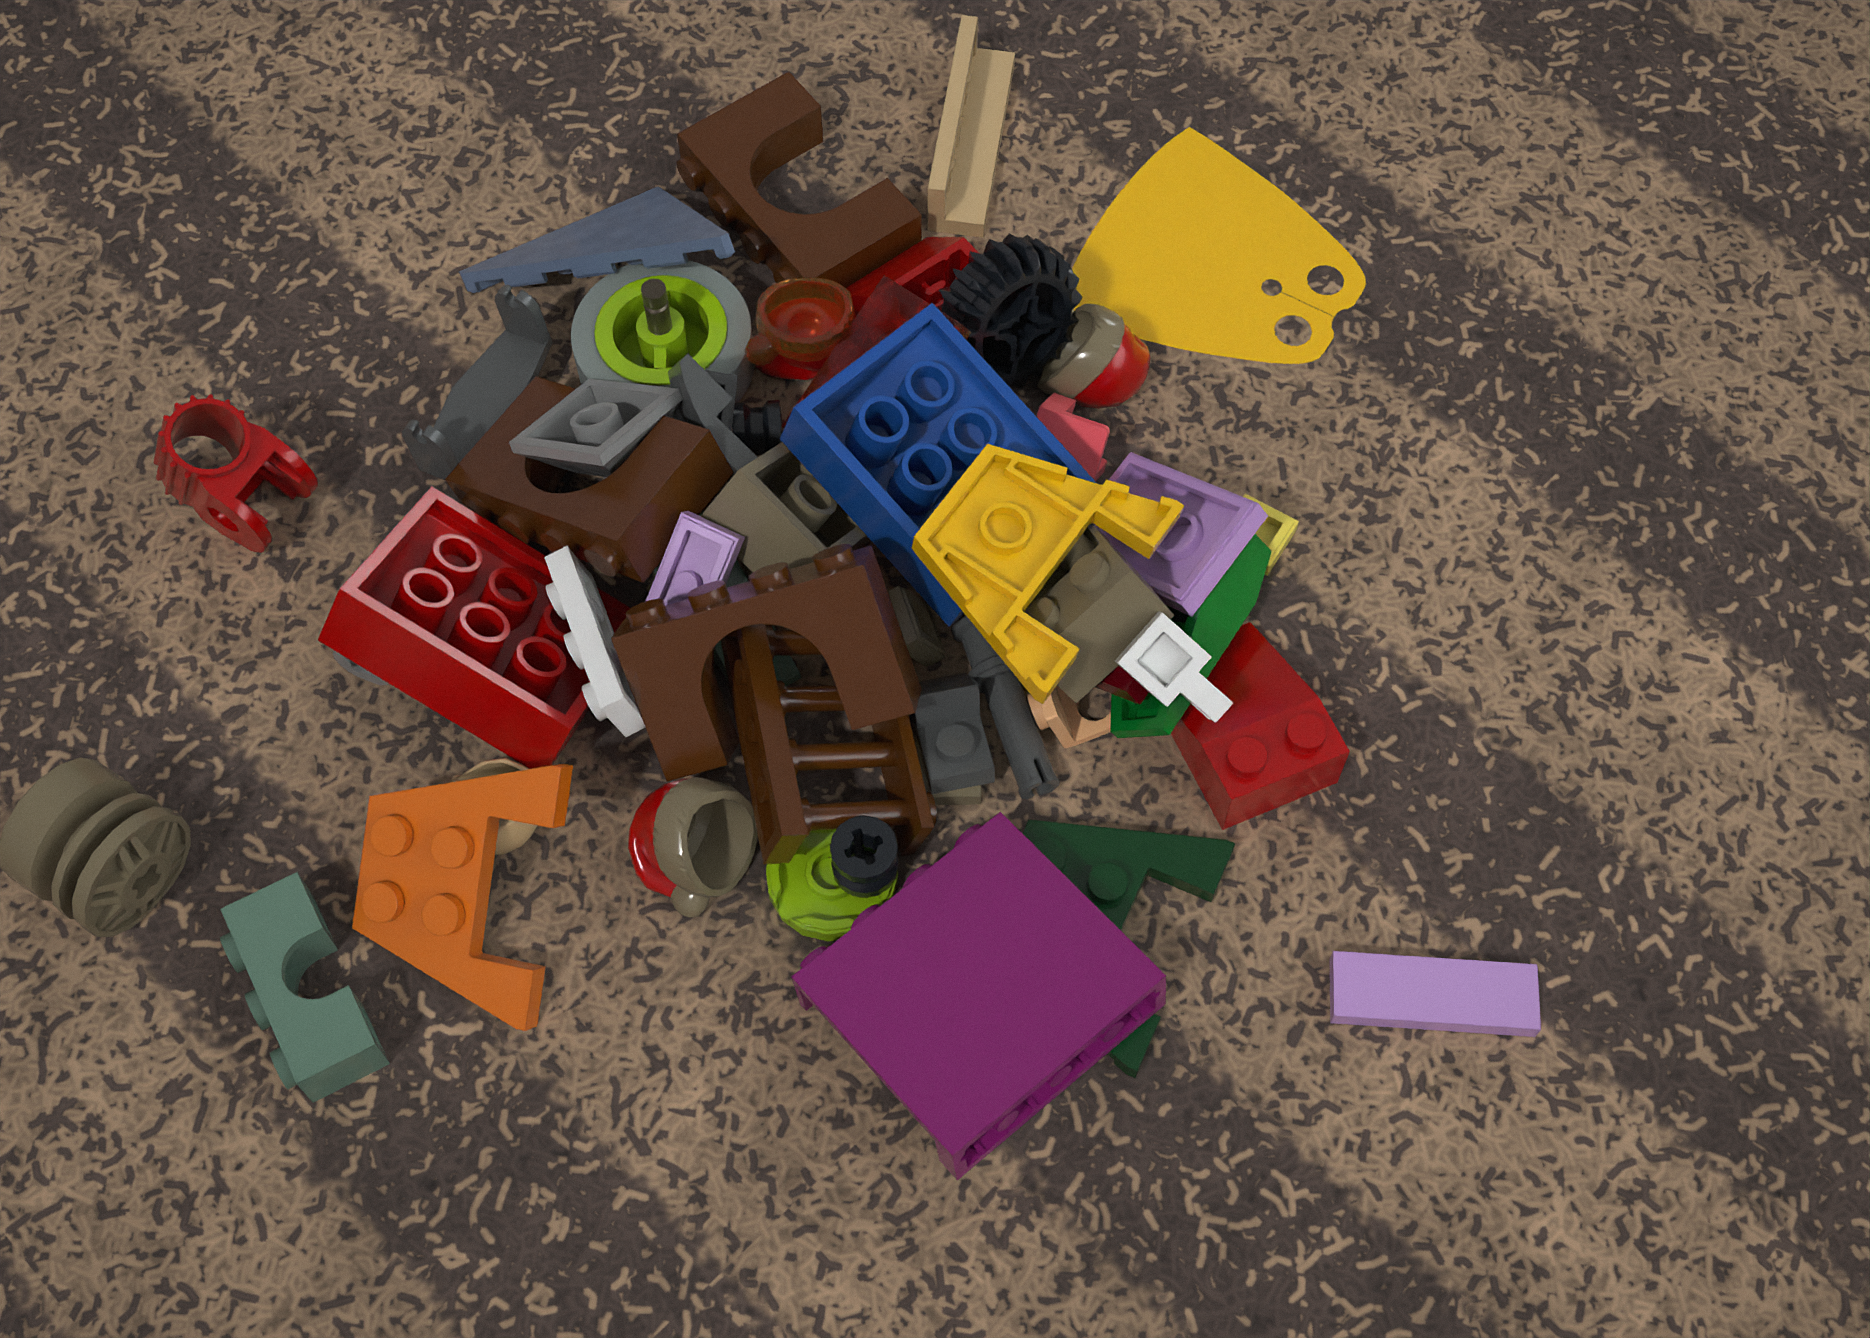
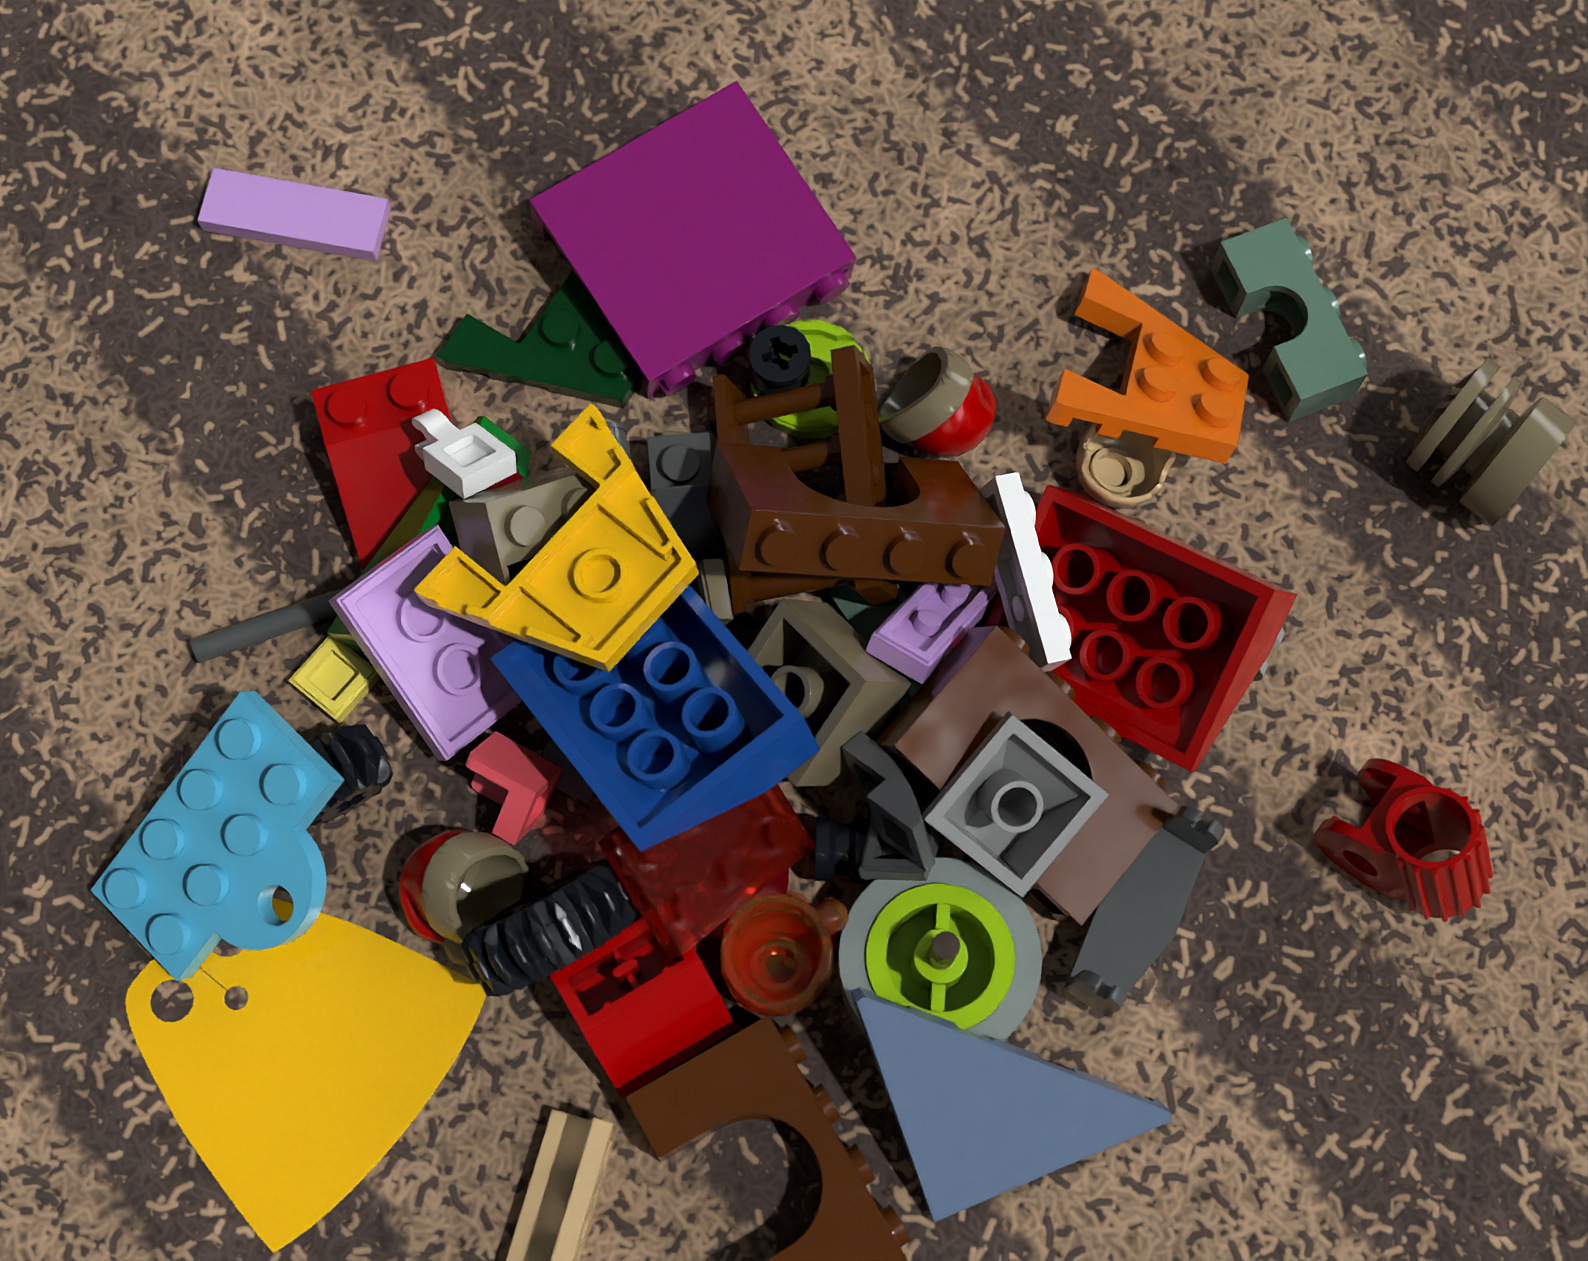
camera: 175 degrees left, 10 degrees up
(1229, 427) = (359, 761): none -> black gear
(1307, 355) = (225, 843): none -> medium azure plate
(1324, 576) = (264, 627): none -> dark grey bar

